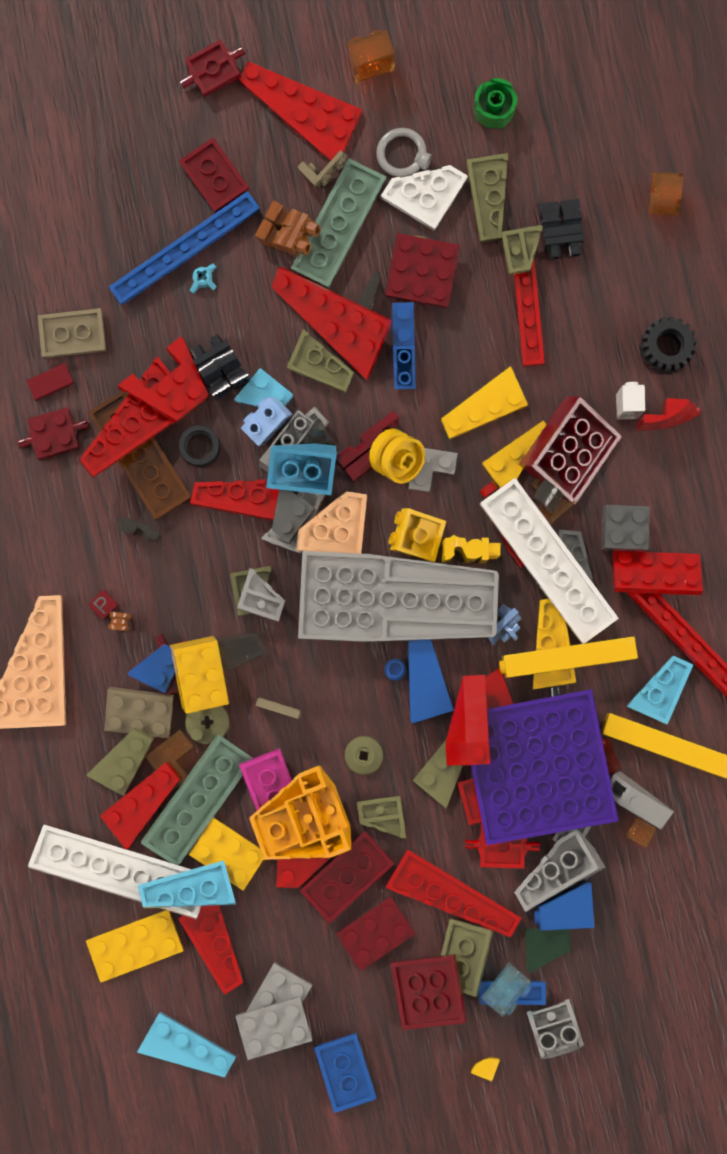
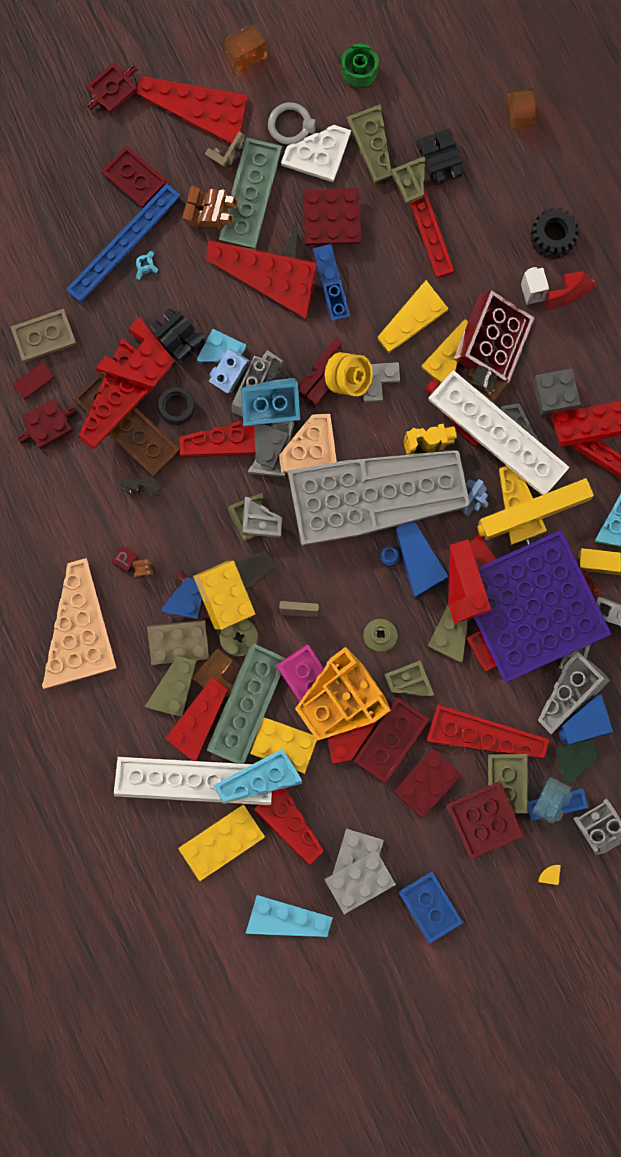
camera: 20 degrees left, 5 degrees down
(318, 364) = (260, 314): olive wing -> none
(417, 534) = (380, 437): yellow plate -> none
(503, 854) = (519, 689): red plate -> none

